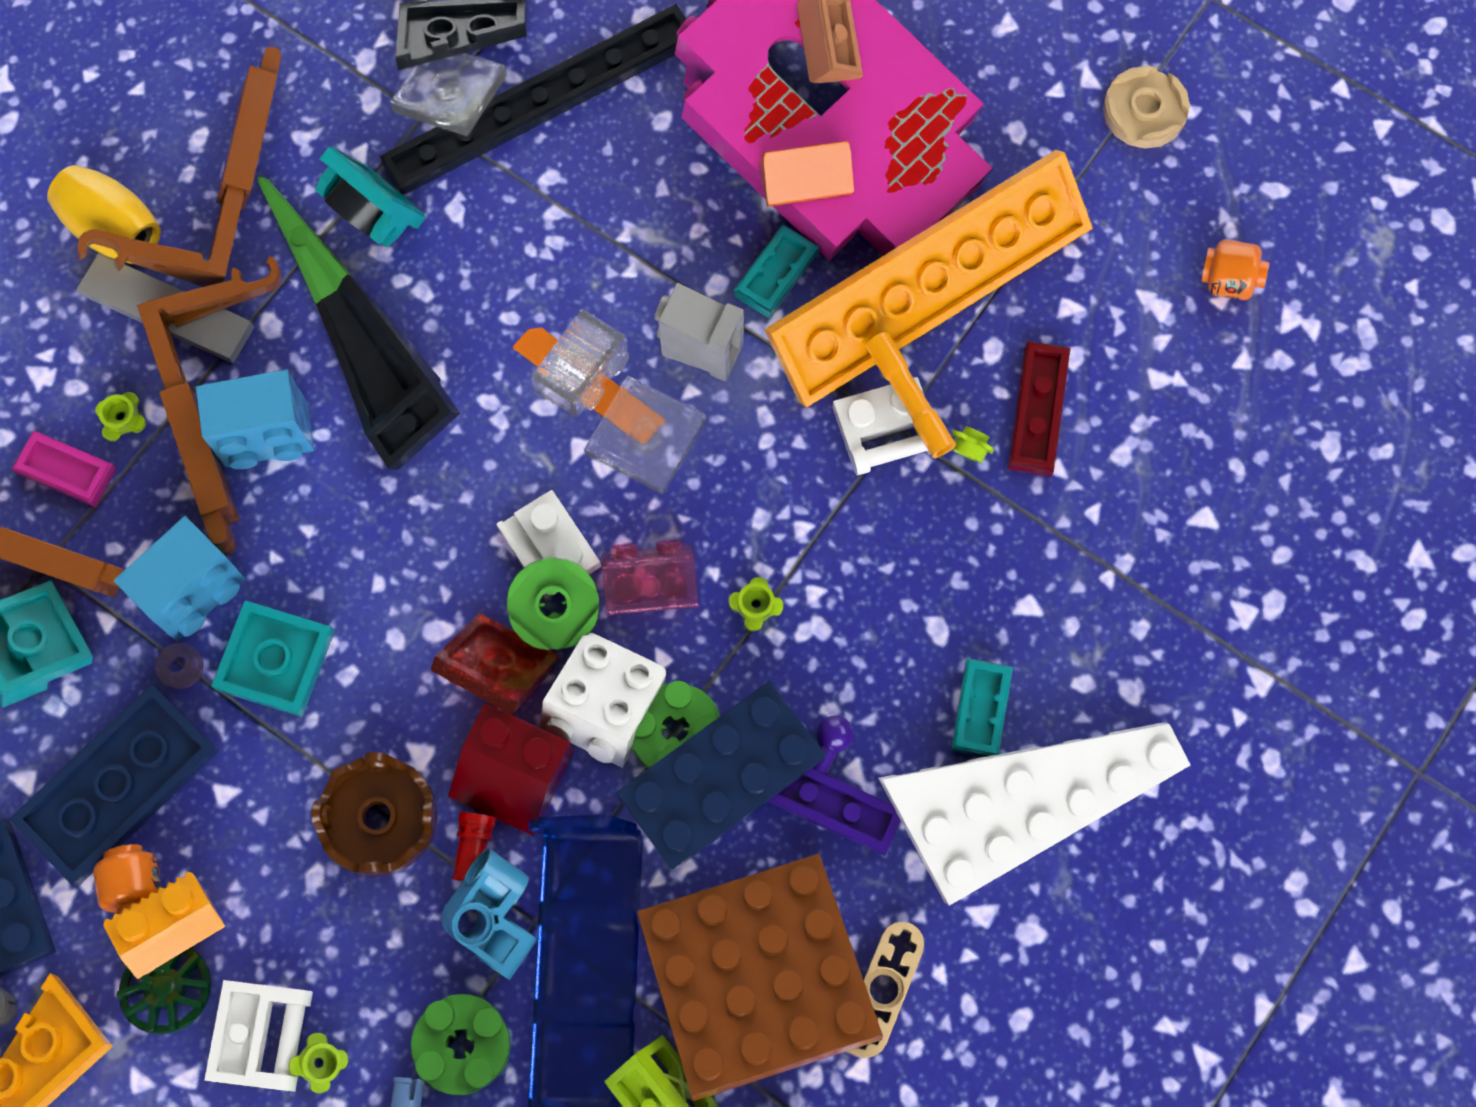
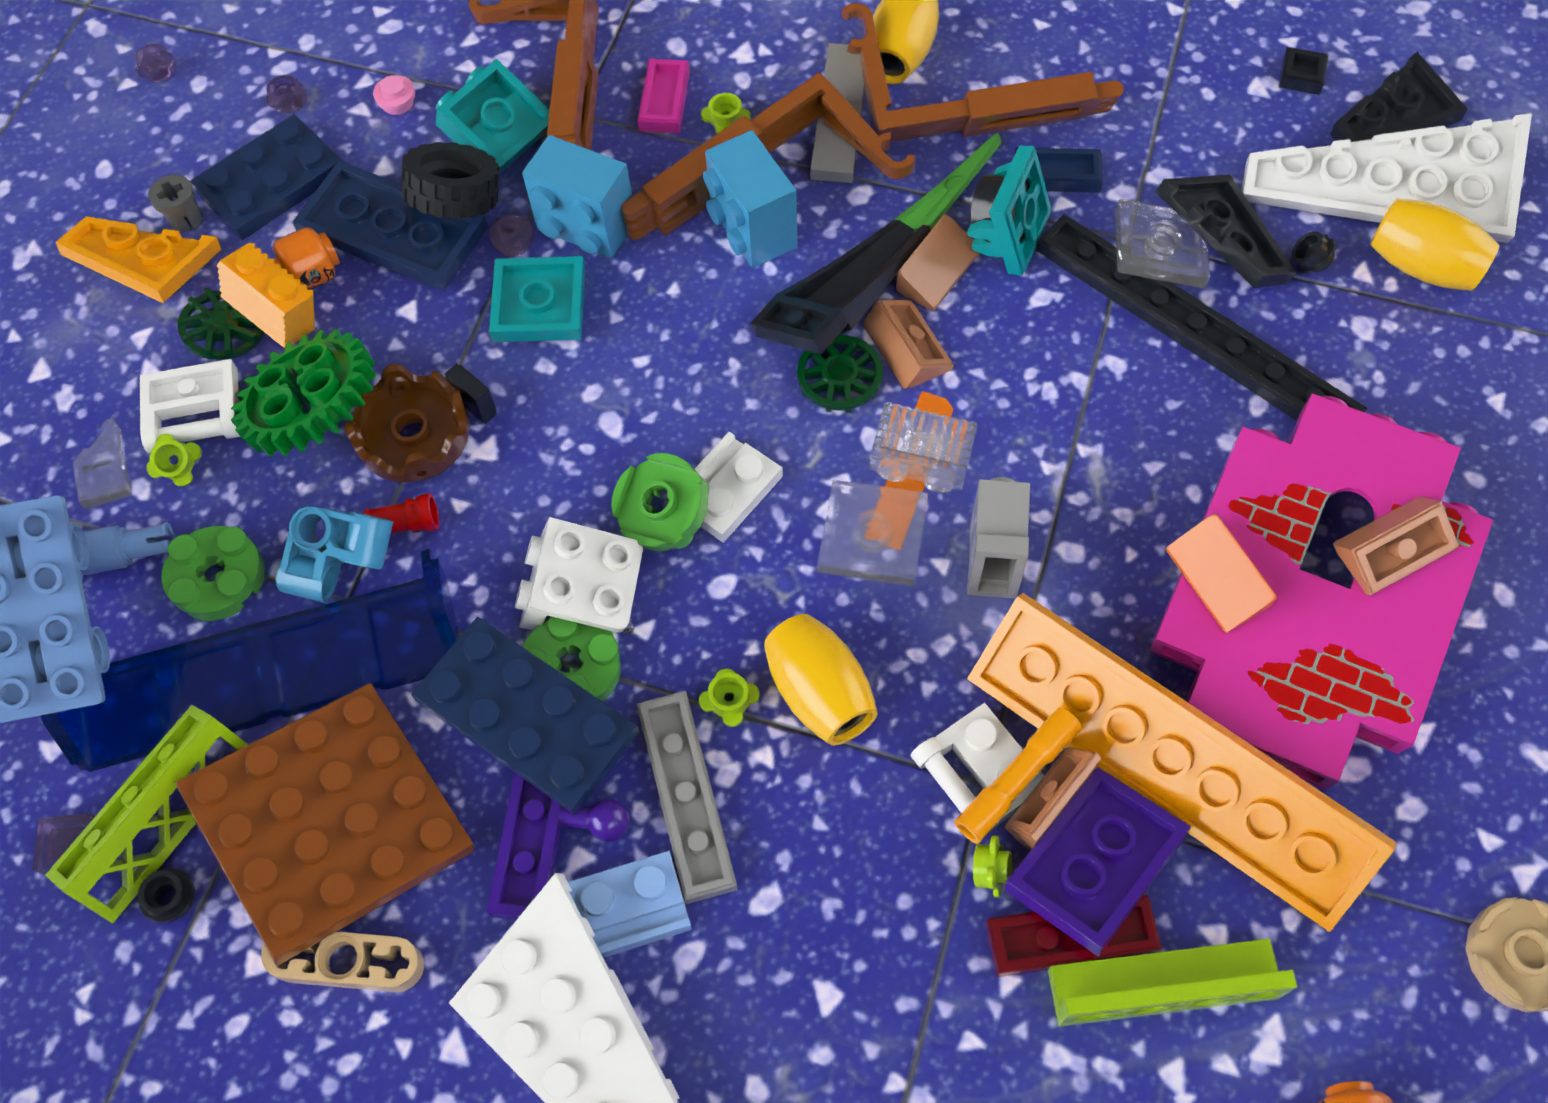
camera: 75 degrees right, 10 degrees down
(114, 724) = (450, 180): none -> black tyre
(305, 956) = (330, 380): none -> green gear
(328, 126) = (1071, 169): none -> dark blue tile
(364, 742) = (473, 393): none -> black tile
(388, 283) = (936, 264): none -> nougat slope
(460, 340) = (906, 342): none -> nougat slope
(474, 409) = (841, 374): none -> dark green wheel
(494, 664) = (578, 469): clear red plate -> none
(509, 768) = (489, 522): dark red slope -> none
(649, 577) = (720, 583): clear pink bracket -> none
(774, 520) = (820, 679): none -> yellow piece
(776, 271) = (1109, 599): teal plate -> none
(830, 666) = (686, 798): none -> light grey tile
(909, 732) = (632, 904): none -> light blue plate
(935, 376) = (1052, 795): none -> nougat slope
(981, 708) = (683, 972): teal plate -> none
(993, 364) = (1097, 860): none -> dark purple plate
(1096, 355) = (1167, 982): none -> lime fence

